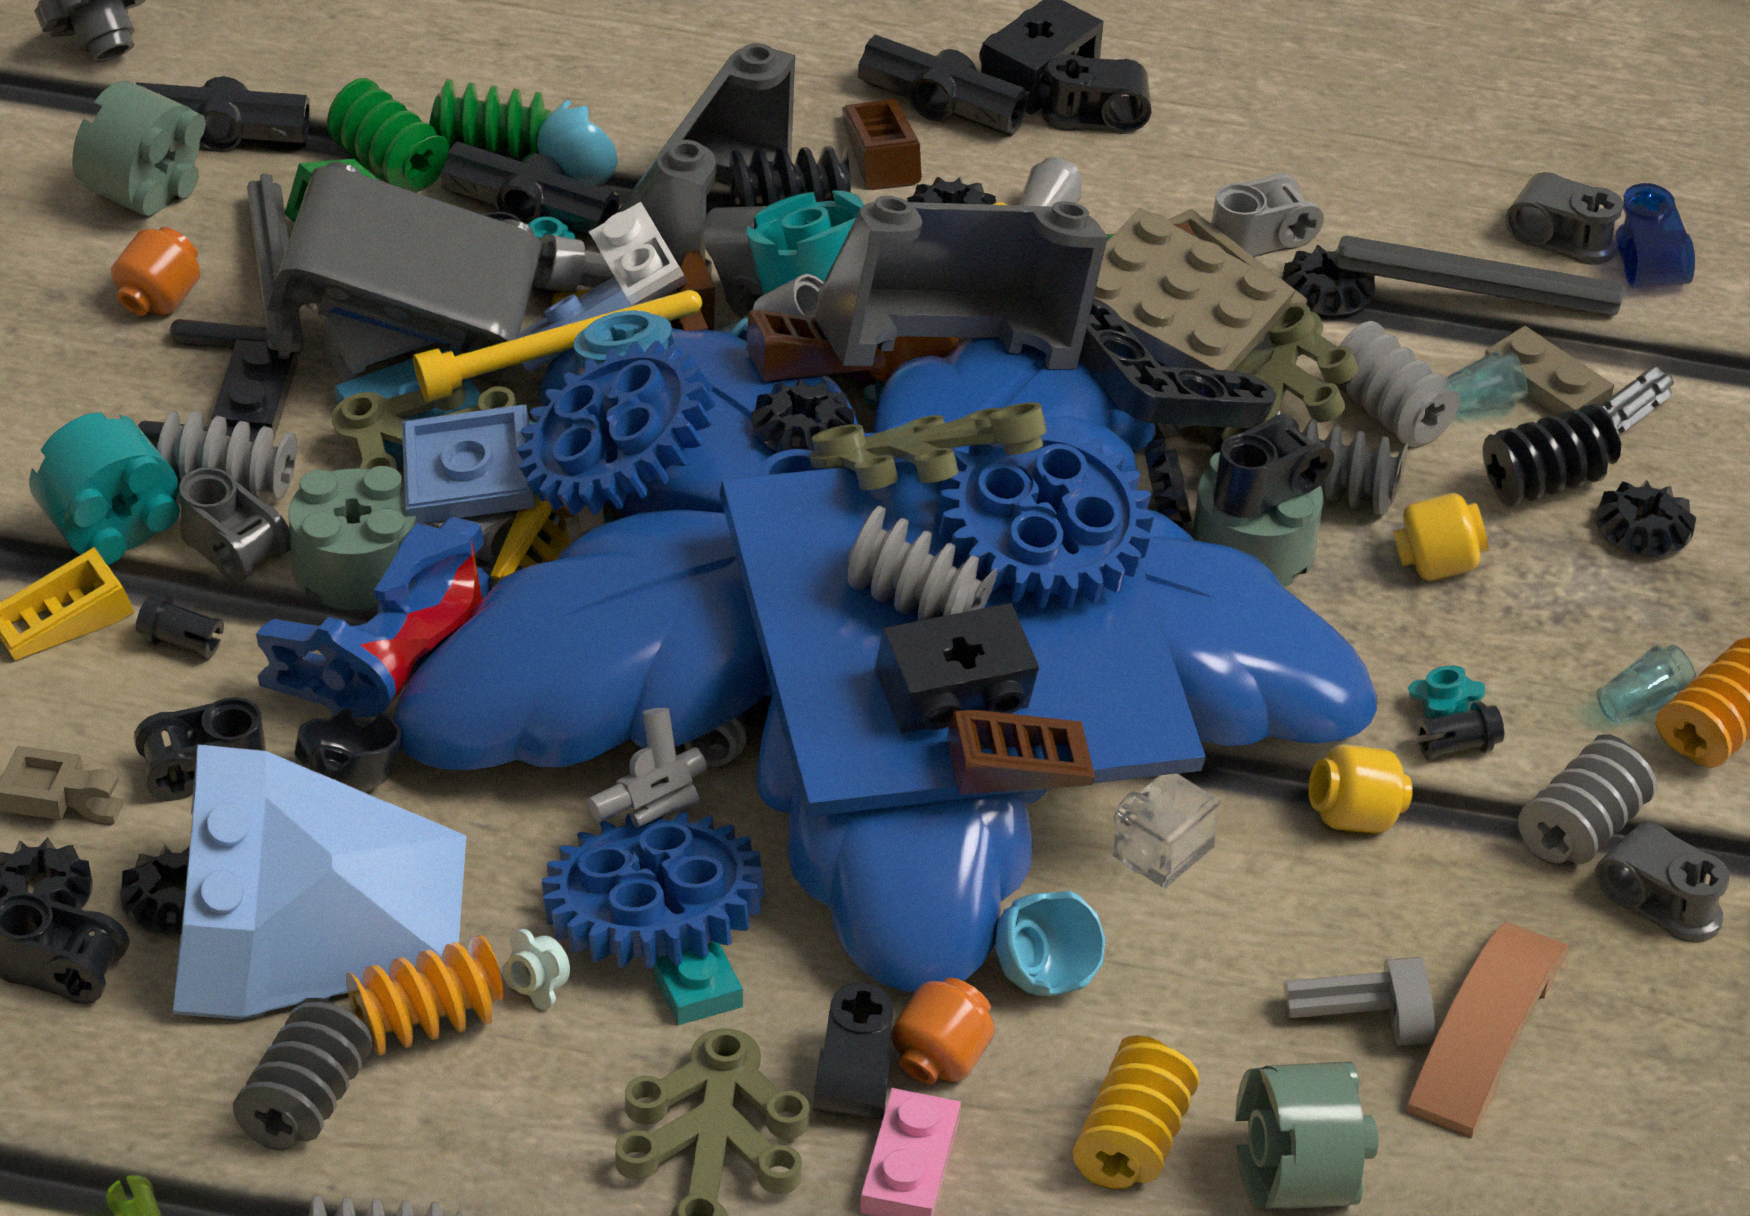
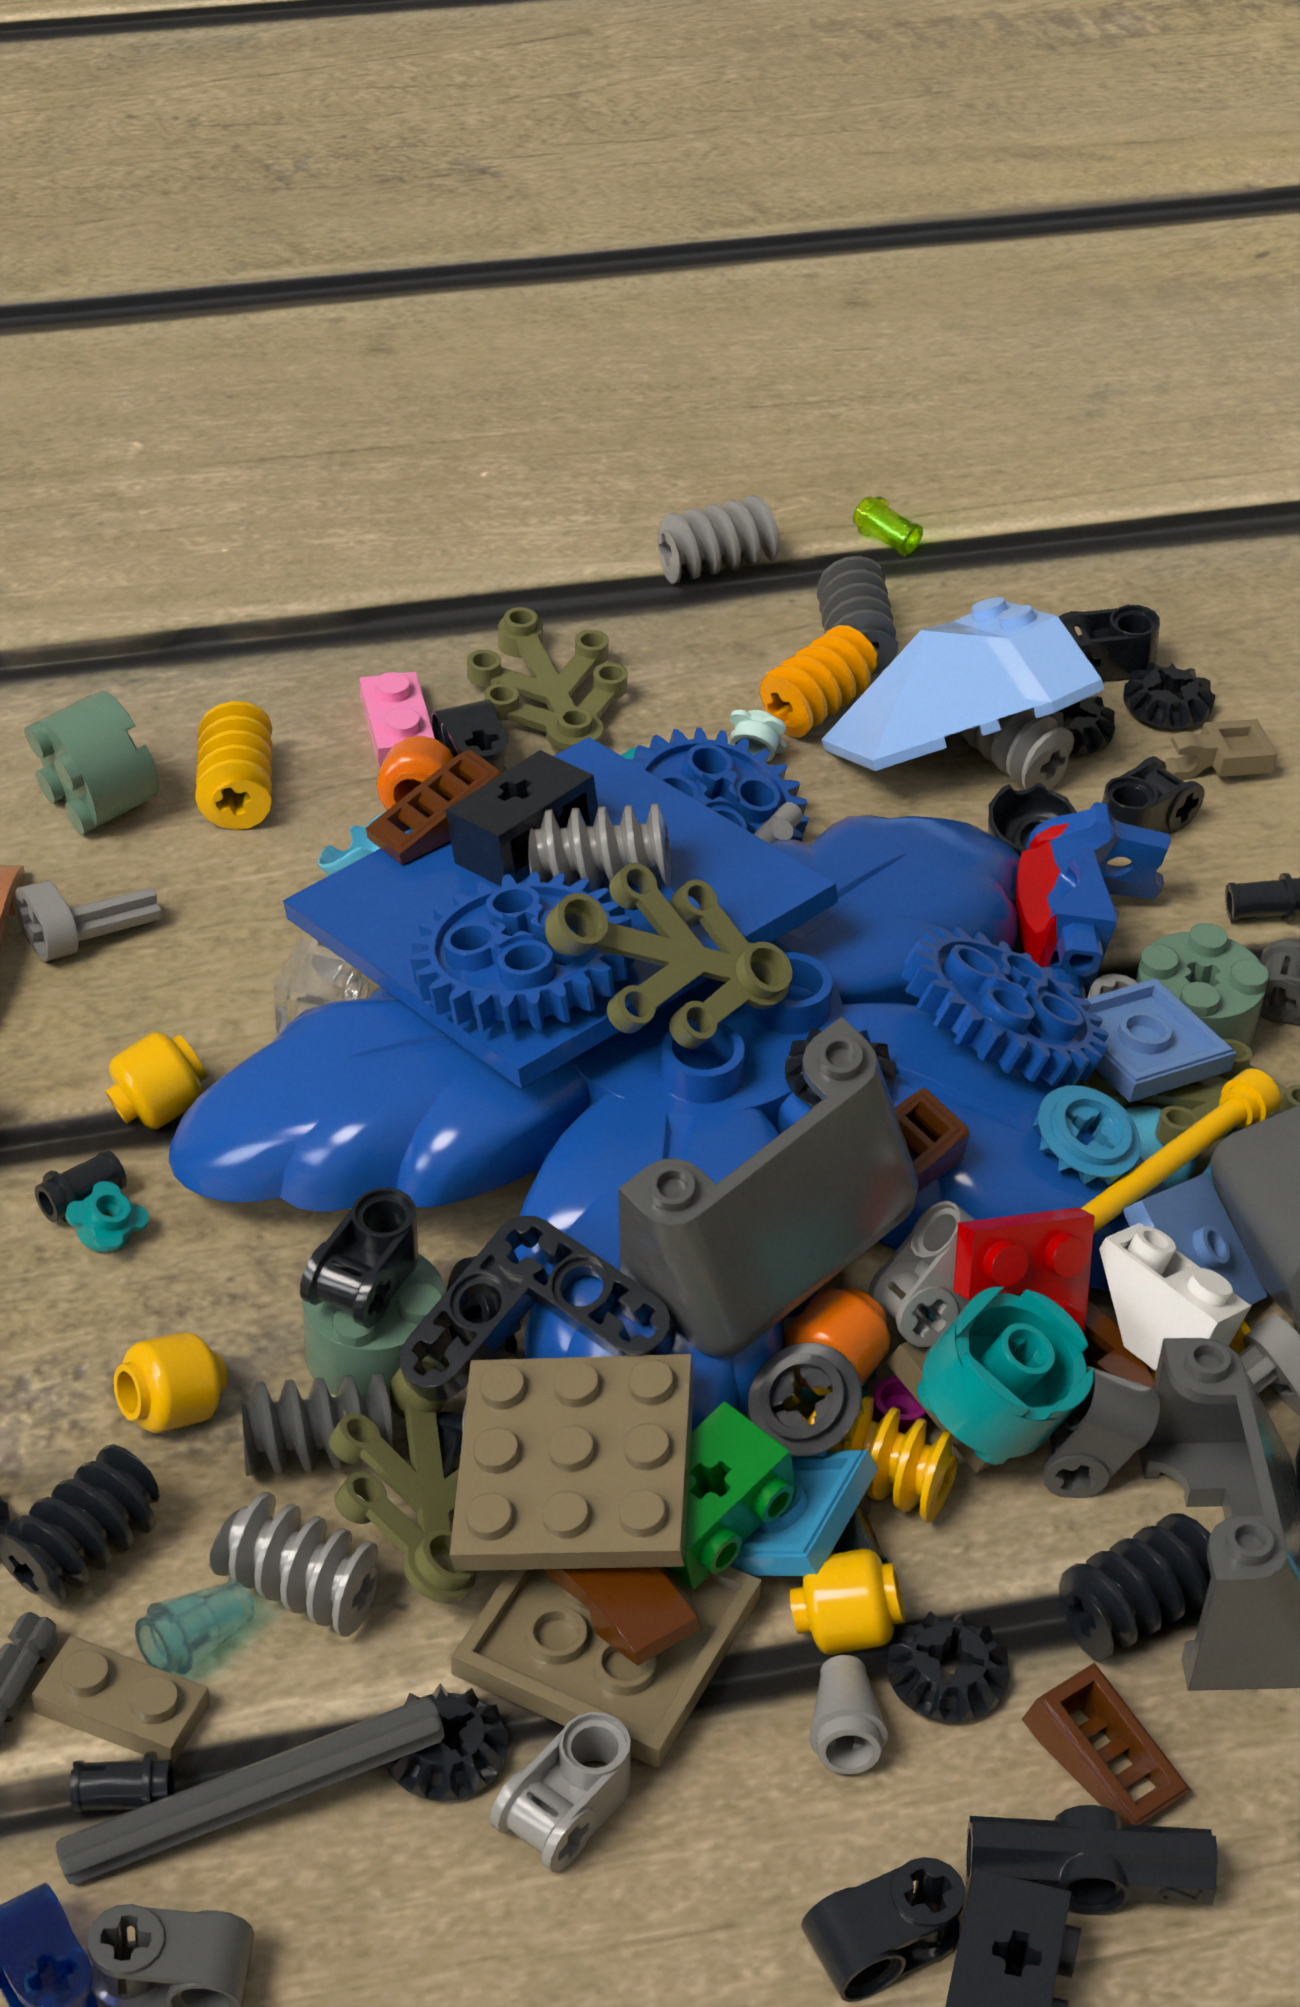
camera: 155 degrees right, 0 degrees up
(734, 282) = (1030, 1252): none -> red plate
(1564, 318) = (120, 1783): none -> black pin

